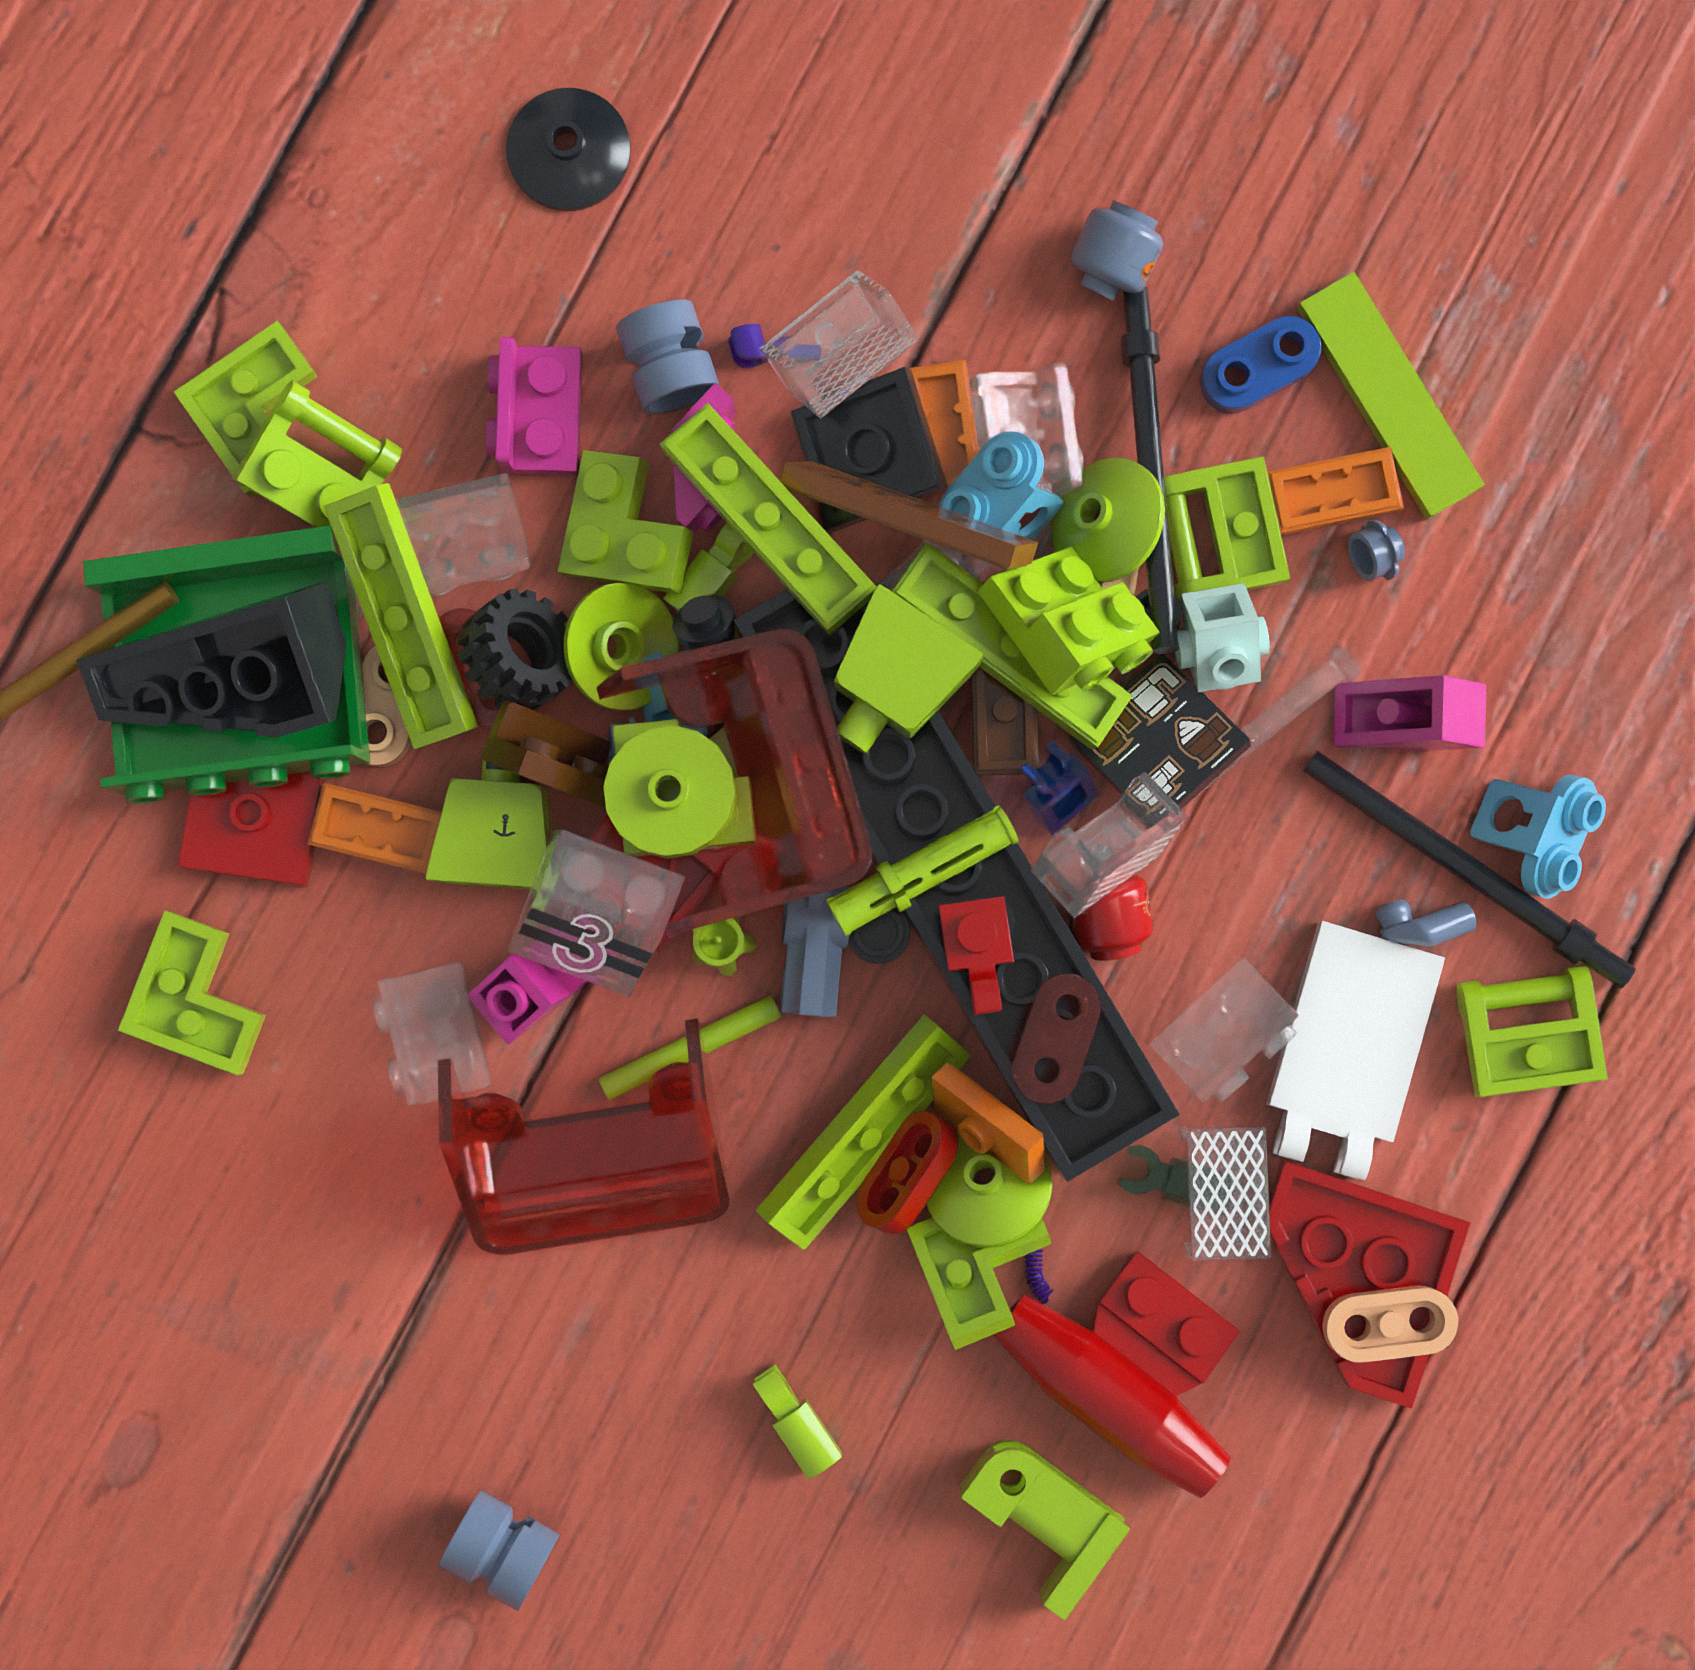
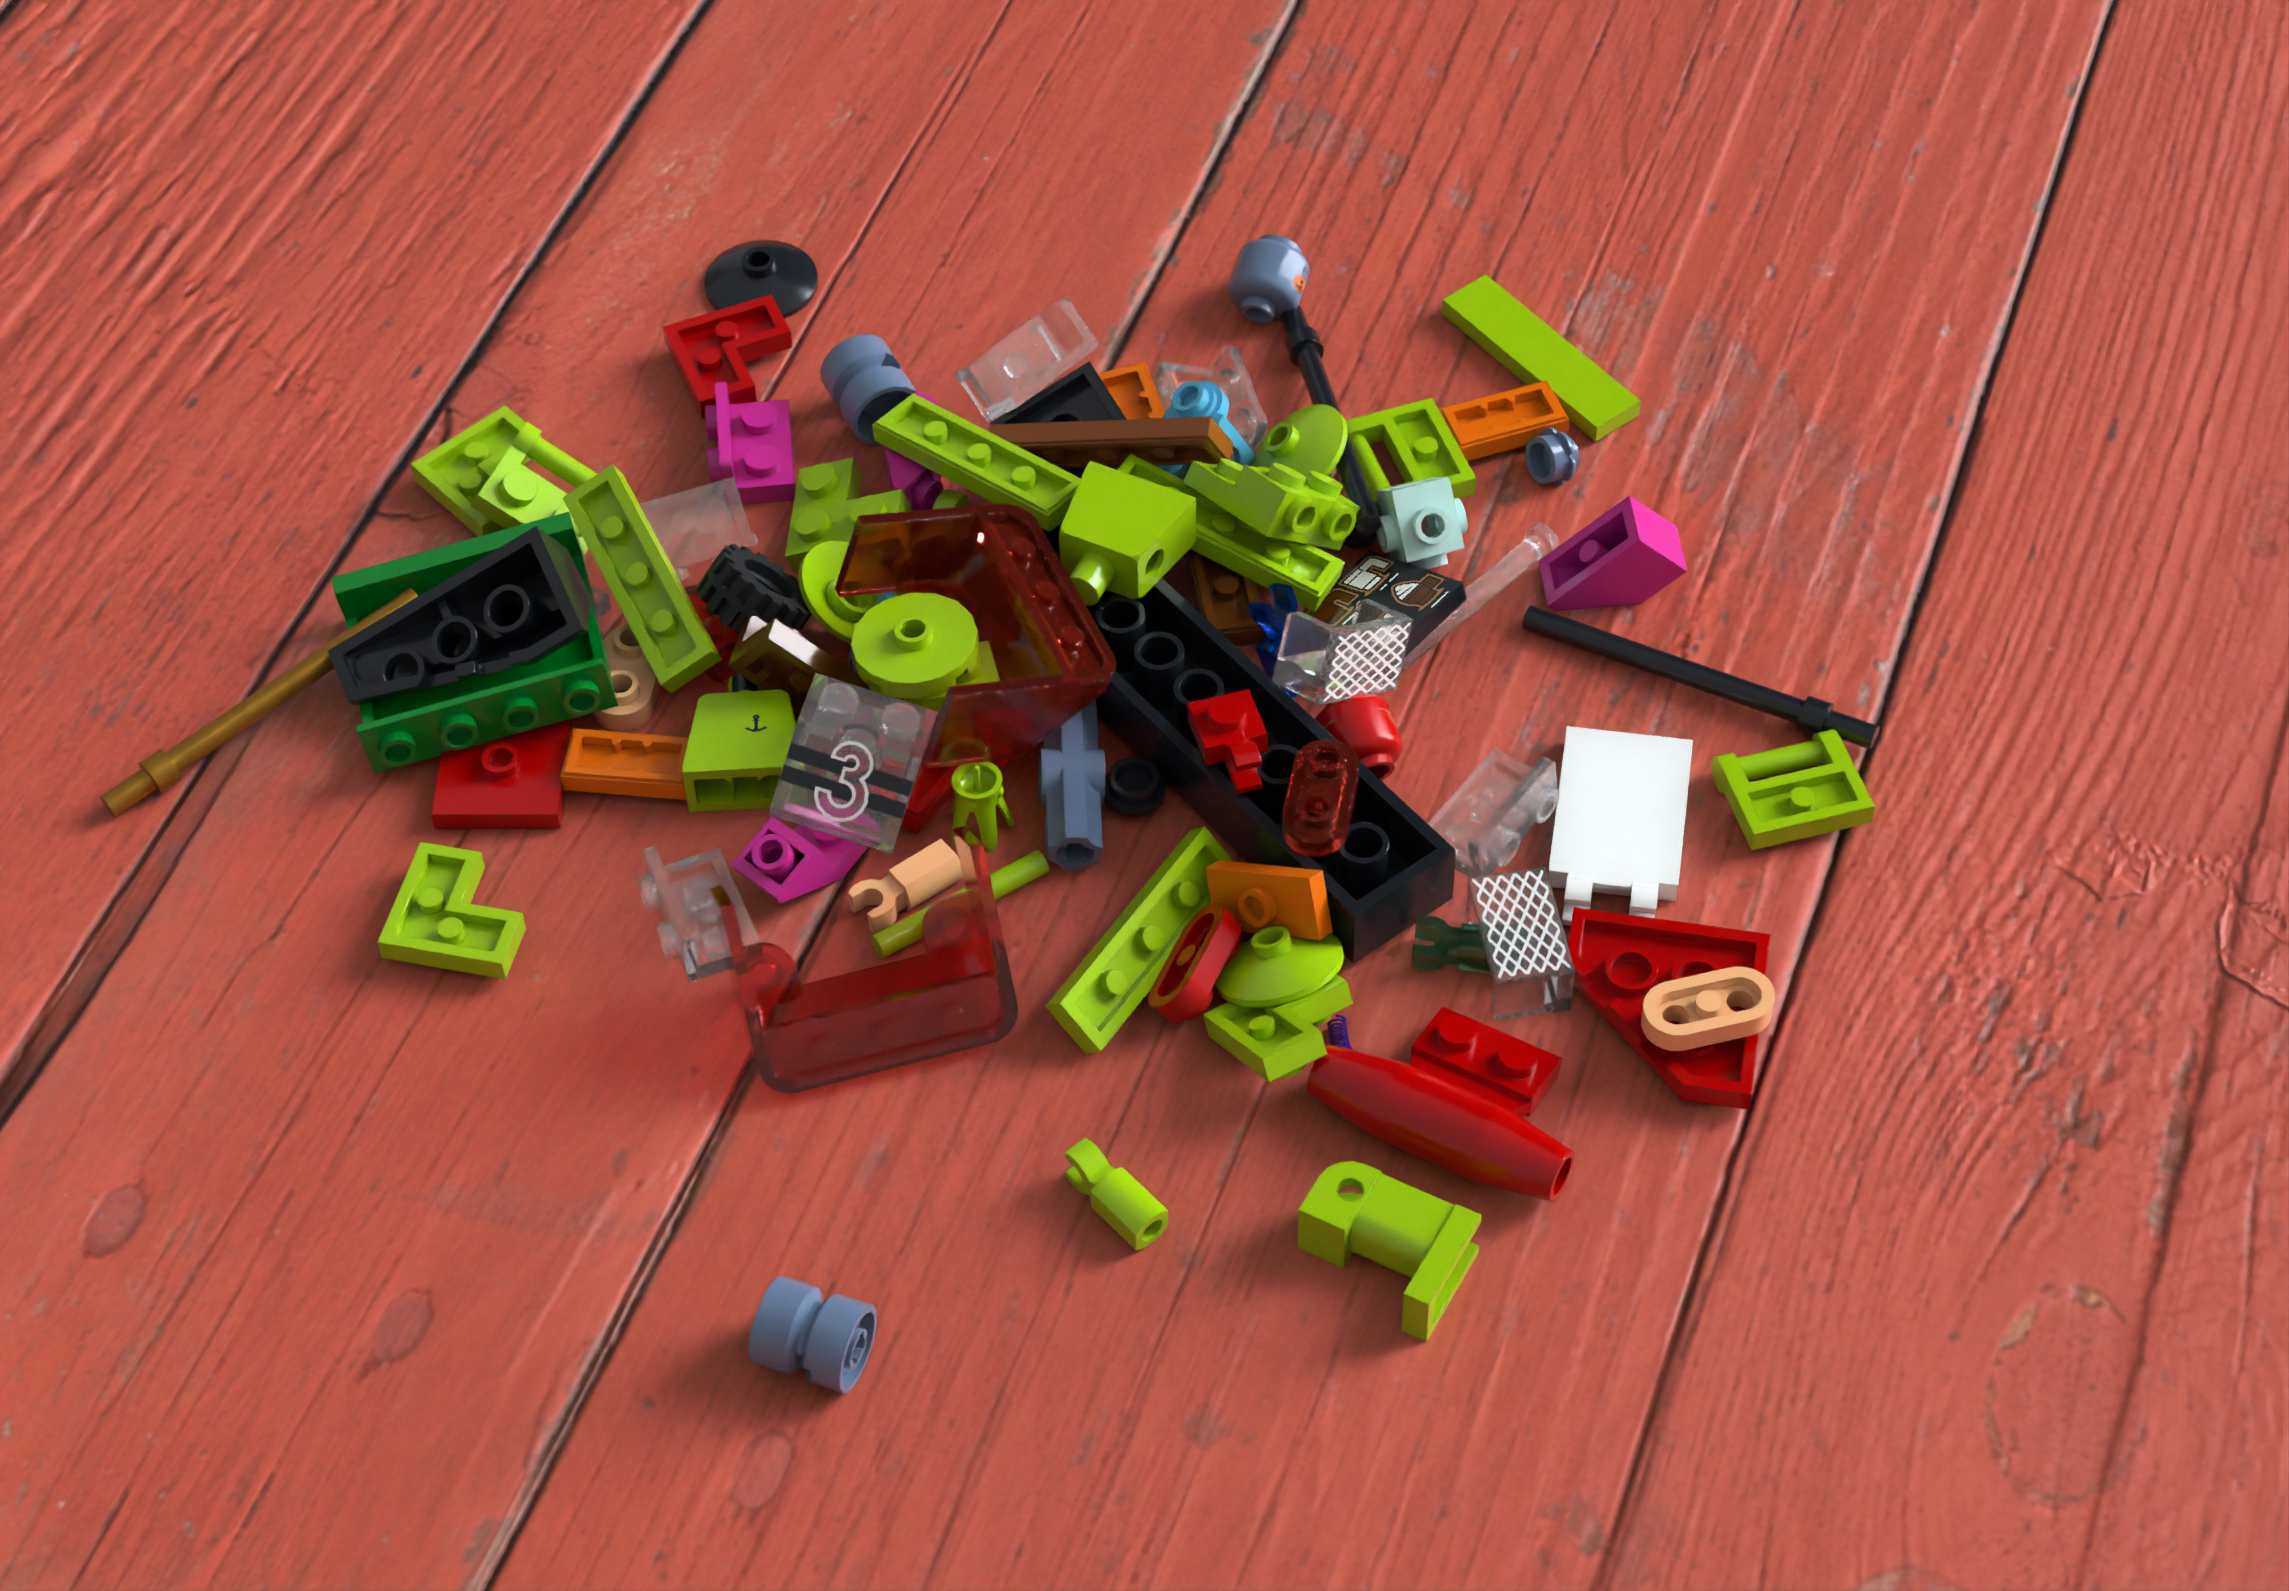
camera: 10 degrees left, 35 degrees down
(505, 256) = (718, 343): none -> red plate
(643, 1020) = (906, 885): none -> light nougat bar
(746, 344) = (945, 385): dark purple hand -> none
(921, 870) = (1144, 692): lime pin -> none
(1263, 364) = (1416, 350): blue plate -> none
(1427, 929) = (1669, 718): sand blue arm -> none
(1553, 834) = (1772, 629): medium azure bracket -> none

